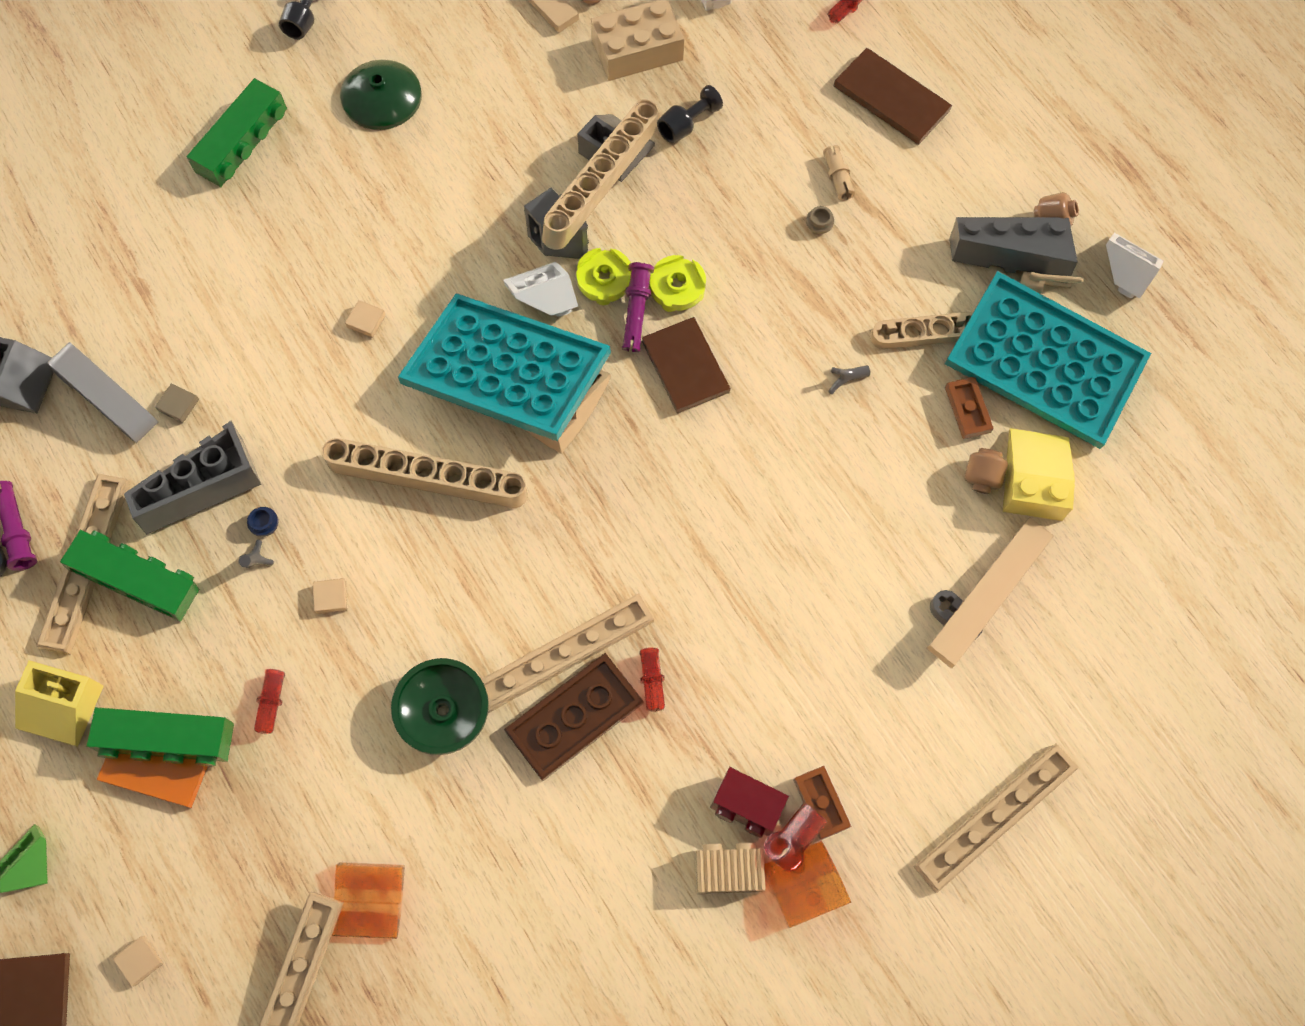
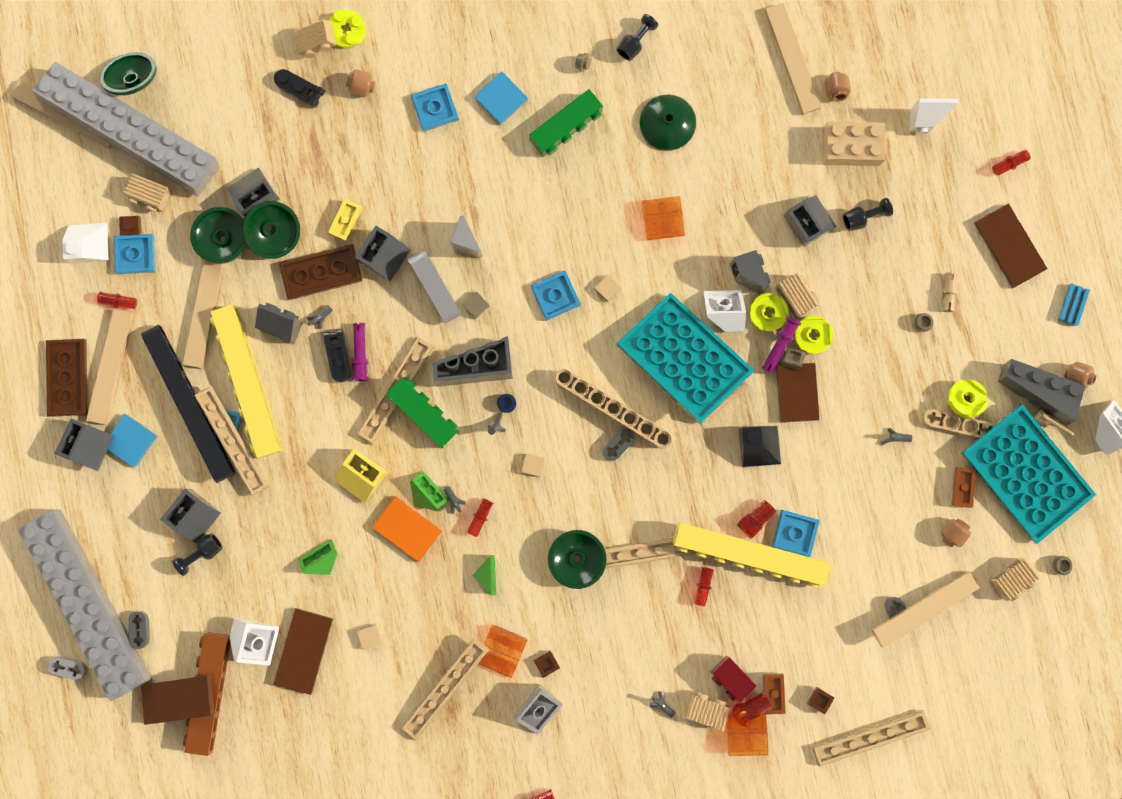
camera: 25 degrees right, 15 degrees up
(46, 172) = (435, 107): none -> dark azure tile
(129, 316) = (464, 240): none -> light grey slope
(138, 132) = (501, 98): none -> dark azure tile
(160, 735) = (416, 518): green brick -> none
(171, 693) = (426, 493): none -> bright green slope
(220, 691) = (454, 500): none -> dark grey bar
(238, 56) = (582, 62): none -> dark tan plate
(292, 353) = (555, 295): none -> dark azure tile
(306, 786) = (487, 575): none -> bright green slope
(413, 206) = (663, 218): none -> clear orange slope
(445, 520) = (614, 442): none -> dark grey beam
(447, 894) = (546, 664): none -> reddish brown tile
(454, 974) = (537, 709): none -> light grey slope
(573, 716) = (651, 590): reddish brown tile -> none
(599, 174) = (800, 249): tan beam -> none
(634, 238) = (797, 295): none -> tan brick
(655, 889) = (661, 704): none -> dark grey bar
(658, 451) = (759, 446): none -> black slope
(662, 320) = (794, 358): none -> dark tan tile
(691, 558) = (753, 521): none -> clear red piece
(703, 603) = (752, 554): none -> light yellow brick
(759, 555) = (795, 533): none -> dark azure tile
(896, 786) = (820, 700): none -> reddish brown plate
(926, 303) = (960, 406): none -> neon yellow plate
(1005, 119) = (1085, 292): none -> dark azure tile
(1039, 475) = (988, 545): light yellow slope -> none
(1097, 505) = (1014, 580): none -> tan brick
(1152, 464) = (1062, 565): none -> dark tan plate

